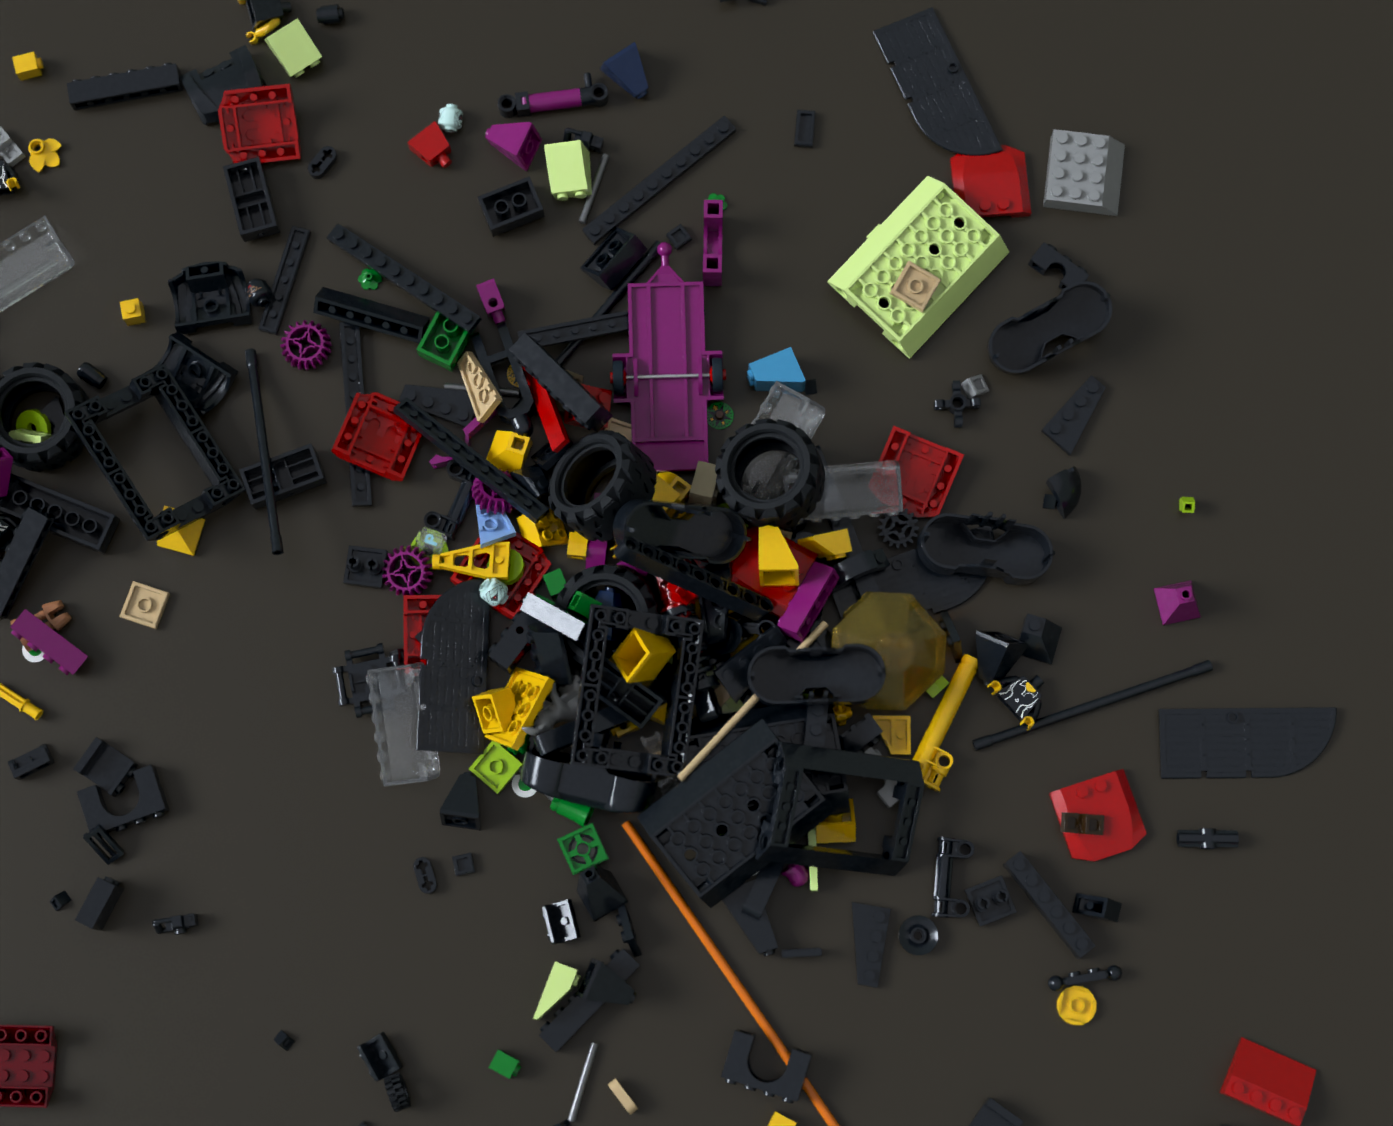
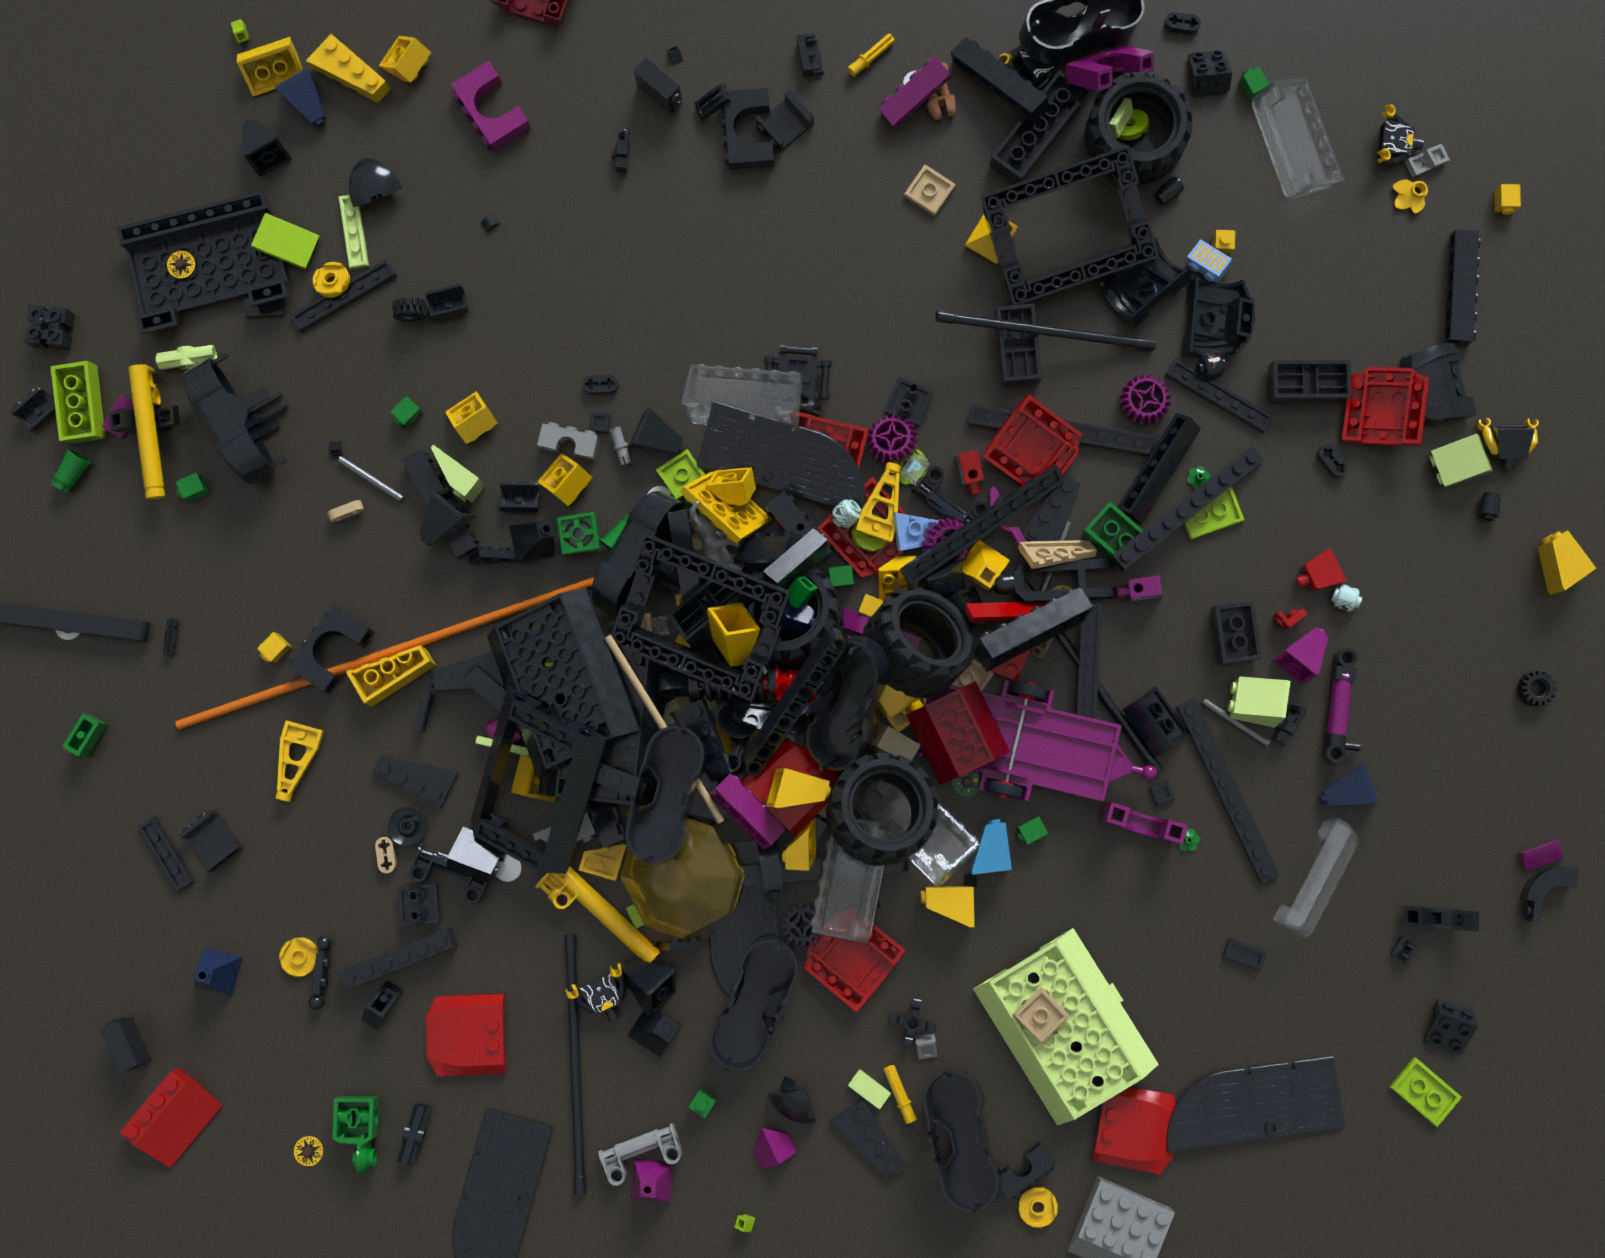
camera: 110 degrees right, 5 degrees up
(155, 320) = (1208, 262): none -> light blue brick
(186, 1064) = (495, 130): none -> magenta arch
(401, 249) = (1218, 514): none -> lime tile
(418, 489) = (965, 463): none -> red torso
(483, 836) = (620, 446): none -> light grey pin
(484, 161) = (1293, 617): none -> red bracket
(489, 871) = (553, 436): none -> light grey arch
(492, 995) = (471, 418): none -> yellow slope
(531, 881) = (565, 479): none -> yellow slope
(678, 429) = (957, 733): none -> dark red slope
(681, 67) = (1321, 880): none -> clear windscreen
(748, 343) = (1031, 831): none -> green brick
(775, 998) = (390, 674): none -> yellow wedge
(835, 396) = (951, 901): none -> yellow slope
(860, 1070) = (299, 734): none -> yellow plate
(928, 856) = (474, 857): none -> brick
(929, 826) = (509, 869): none -> white sticker
(955, 953) = (381, 856): none -> tan beam
(1030, 427) = (869, 1089): none -> yellowish green tile
(1032, 393) = (900, 1094): none -> yellow axle
(1082, 823) = (462, 1015): dark brown slope -> none
(1087, 240) = (1049, 1210): none -> yellow tile
(1091, 574) = (702, 1102): none -> green brick
(1108, 1083) = (217, 971): none -> dark blue slope
(1112, 498) = (773, 1148): none -> magenta slope
(1135, 599) = (638, 1146): none -> light grey piece
(1216, 894) = (357, 1123): none -> green brick
(1256, 938) = (308, 1151): none -> piece

